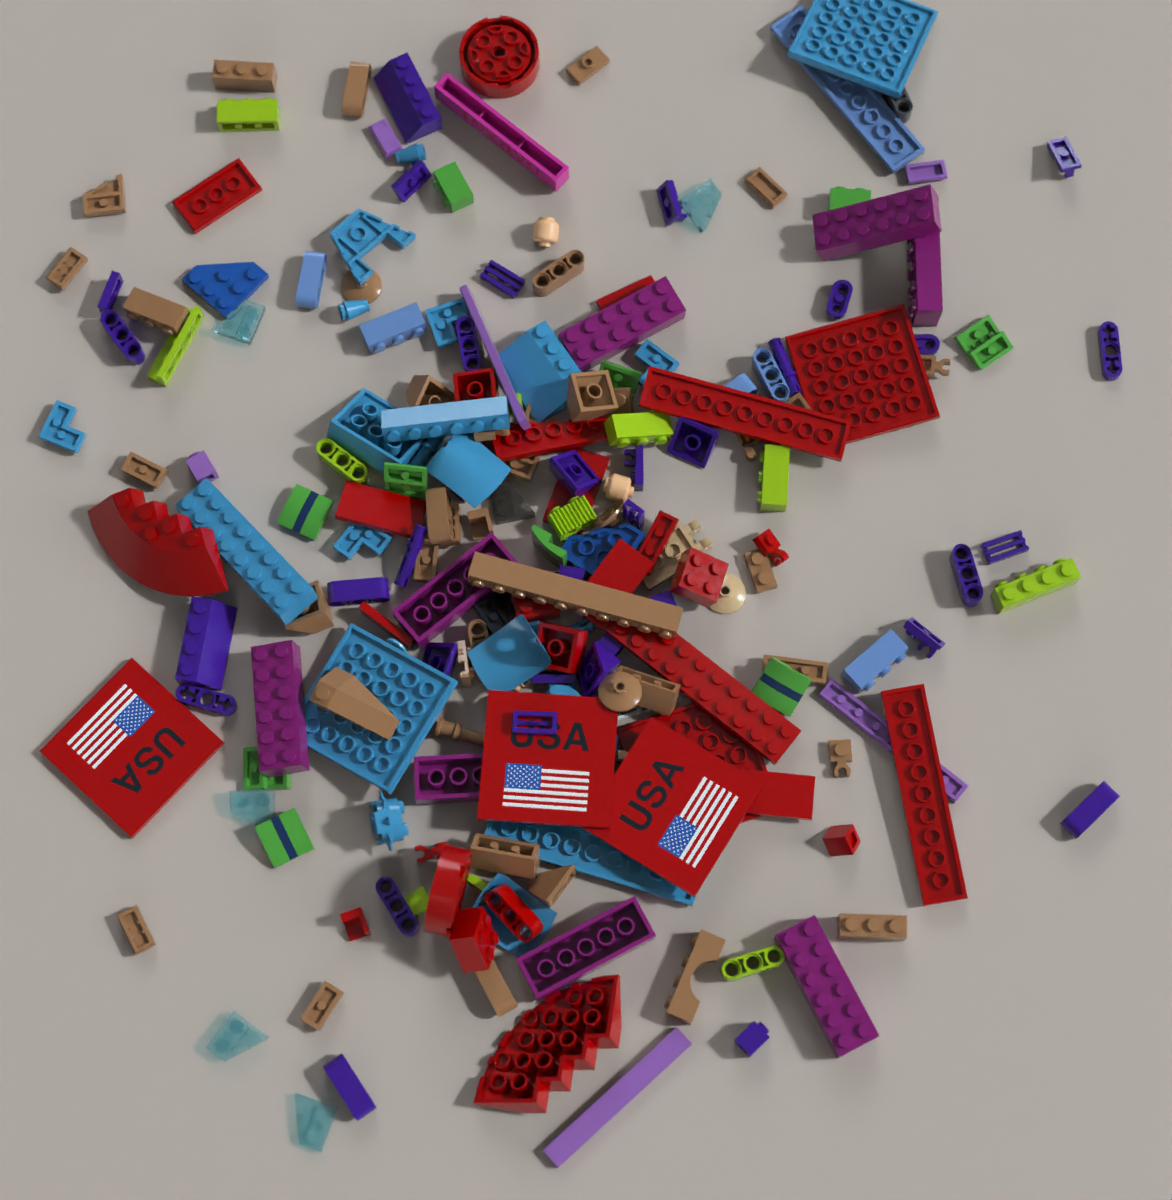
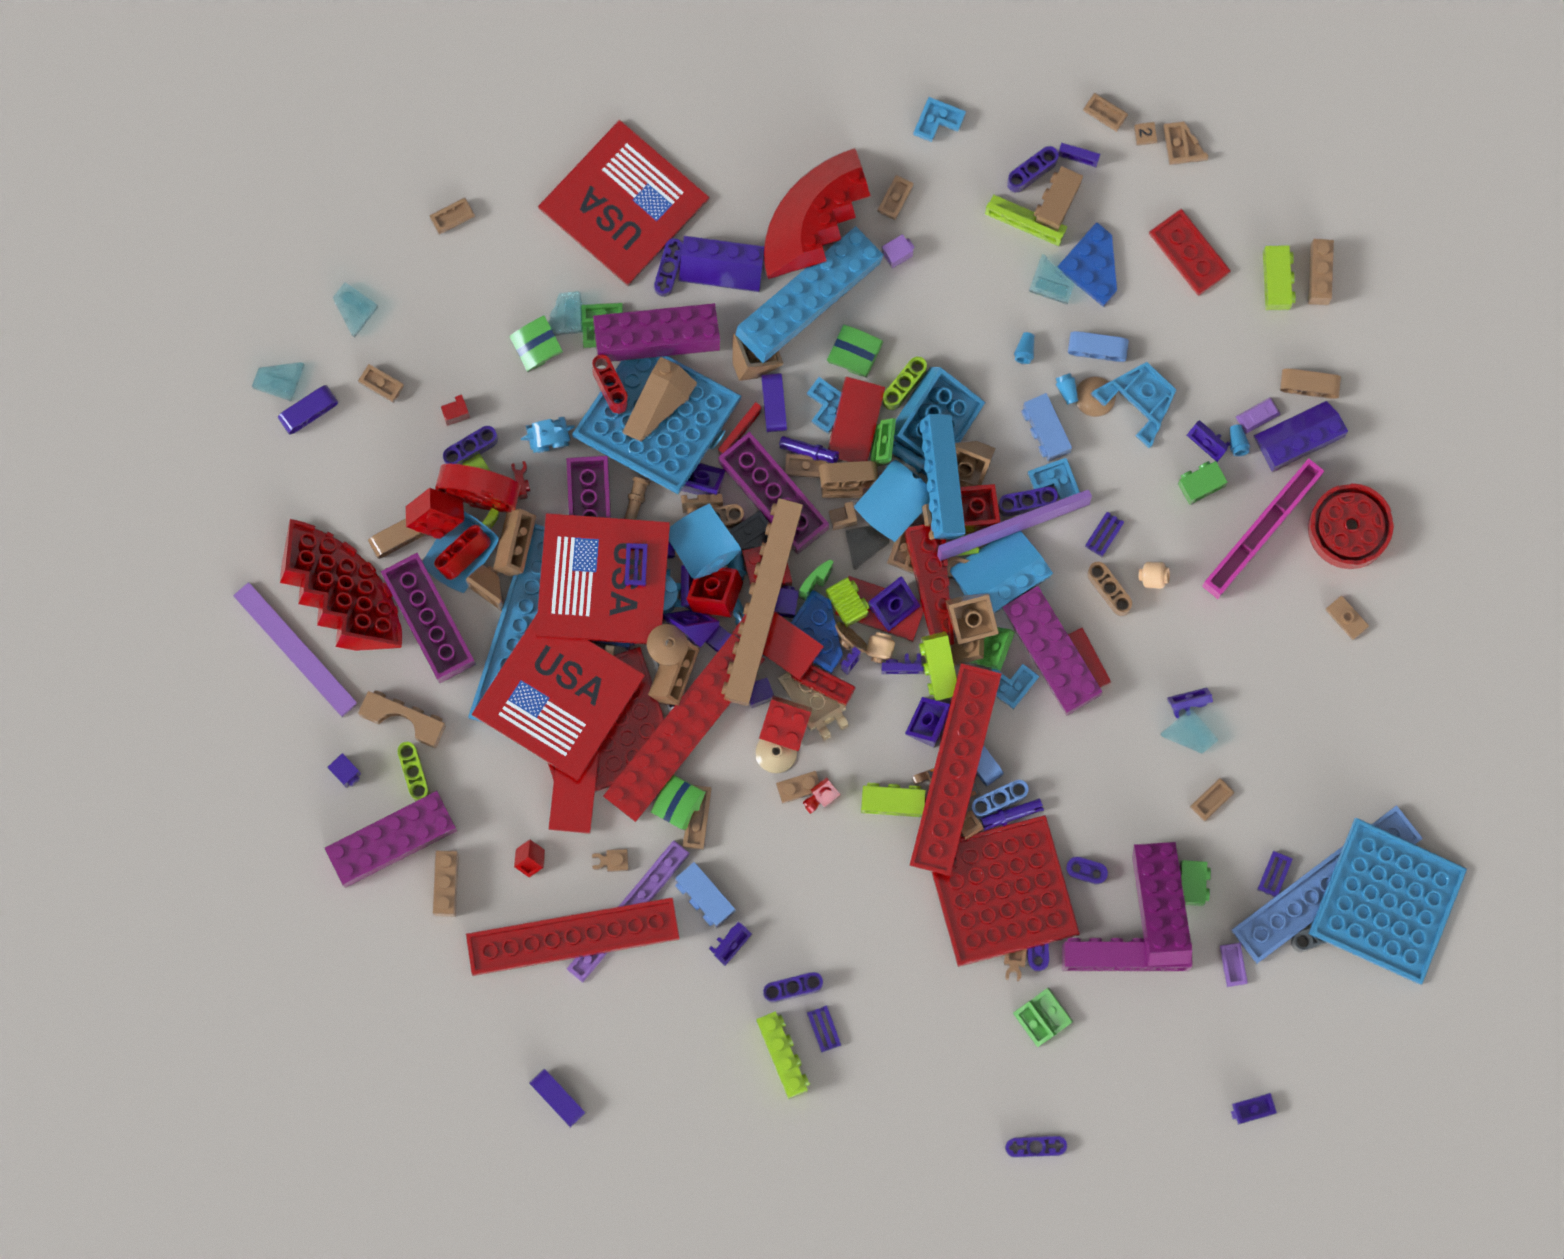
camera: 90 degrees right, 5 degrees up
(91, 233) = (1145, 133): none -> medium nougat tile
(310, 347) = (1025, 349): none -> dark azure cone
(325, 752) = (607, 375): none -> red beam
(836, 138) = (1268, 891): none -> dark purple tile

